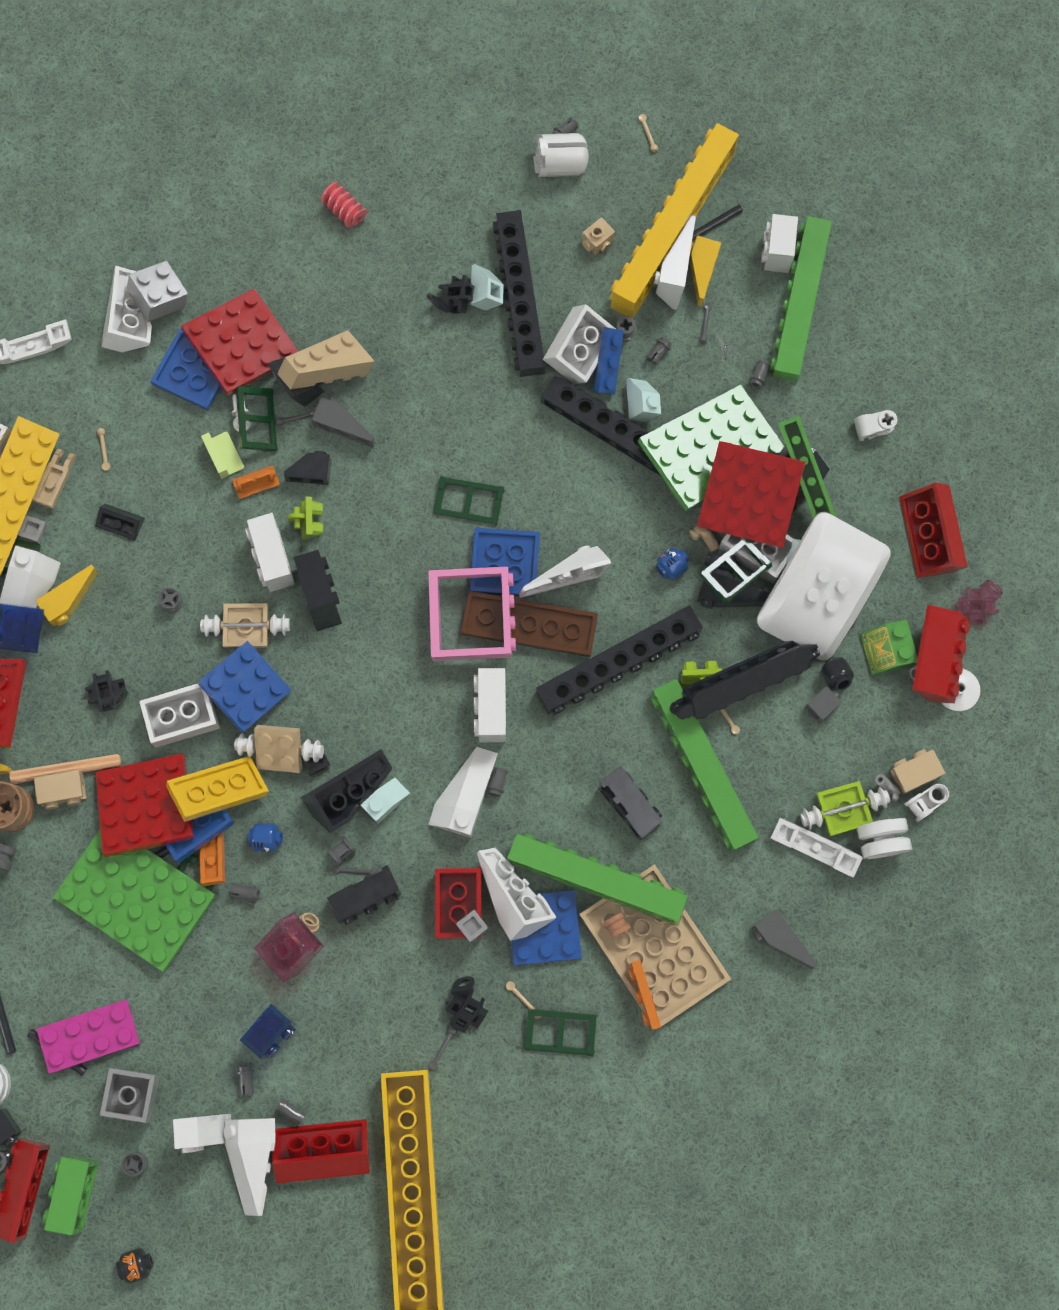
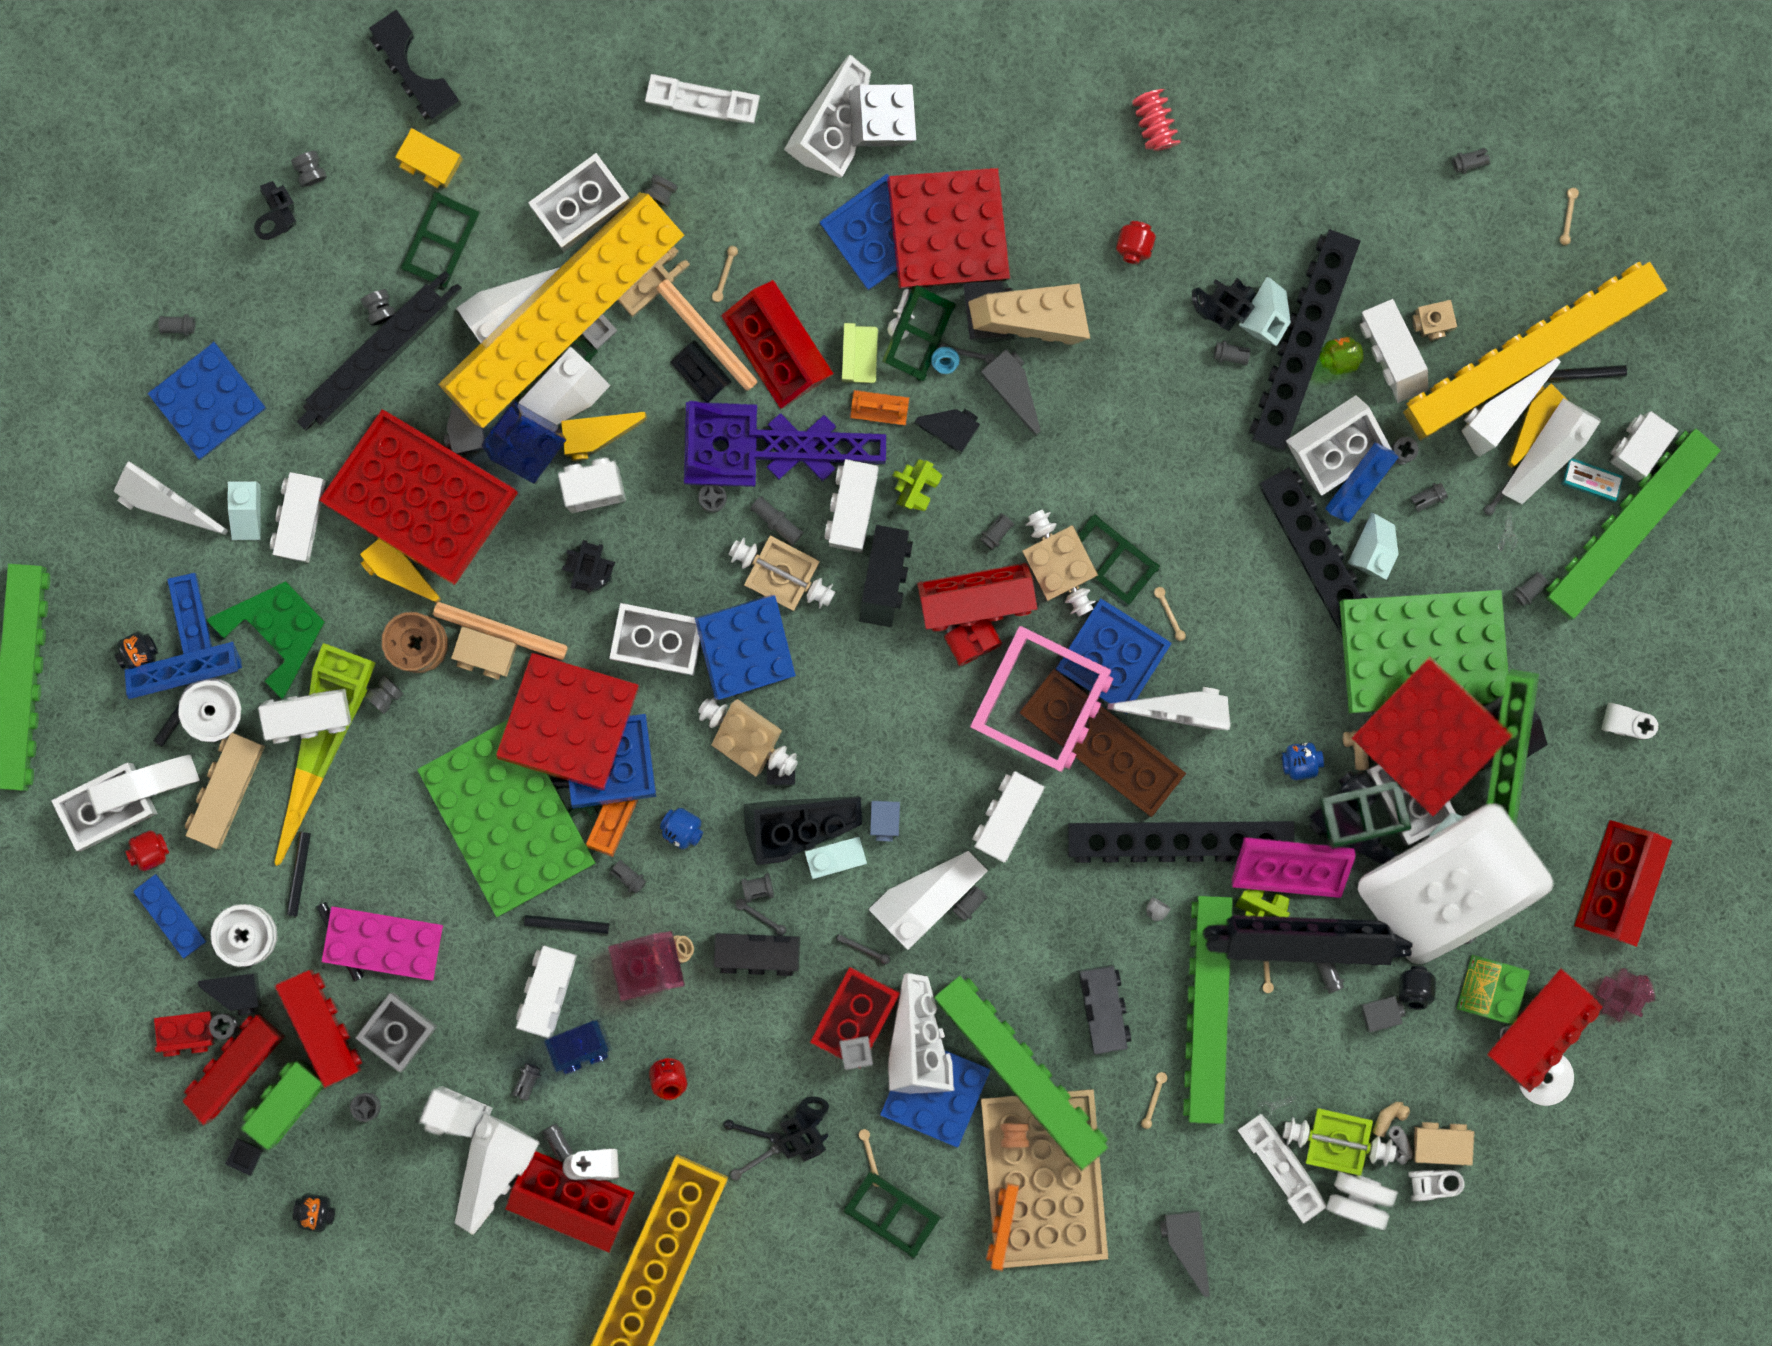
camera: 30 degrees right, 10 degrees up
(30, 413) = (661, 190): none -> dark grey wheel
(61, 1252) = (244, 1156): none -> black plate
(70, 1123) = (319, 1028): none -> red slope
(77, 631) = (592, 485): none -> white brick
(110, 493) = (706, 334): none -> light nougat axle
(162, 475) = (776, 344): none -> red slope
(163, 544) = (738, 428): none -> dark purple piece
(217, 788) = (657, 748): yellow plate -> none
(220, 949) = (566, 924): none -> black bar
(223, 592) = (776, 520): none -> dark grey pin
(225, 1005) = (545, 991): none -> white wedge
(288, 431) = (945, 366): none -> medium azure plate
(327, 1113) = (595, 1165): none -> white piece
(347, 1021) = (668, 1078): none -> red head
(372, 288) = (1136, 242): none -> red head
(380, 520) = (996, 531): none -> dark grey pin
(389, 569) = (977, 597): none -> red slope
(401, 601) = (972, 641): none -> red piece
(406, 755) = (885, 820): none -> sand blue brick
(409, 1031) = (729, 1125): none -> black hinge
(434, 518) = (1060, 563): none -> tan plate
(457, 853) = (884, 958): none -> dark grey hinge
(475, 326) = (1231, 353): none -> dark grey pin
(514, 506) = (1159, 593): none -> tan hinge
(549, 290) = (1342, 356): none -> clear neon green head
(560, 155) = (1446, 194): white cylinder -> none
(583, 267) = (1395, 350): none -> white wedge
(629, 717) = (1157, 910): none -> light grey hinge
(697, 832) = (1161, 1078): none -> tan hinge
(706, 635) = (1293, 867): none -> dark pink plate
(723, 270) = (1557, 443): none -> white wedge
(759, 286) = (1592, 480): none -> slope
(773, 698) = (1330, 977): none -> dark grey pin
(867, 771) = (1387, 1115): none -> tan arm

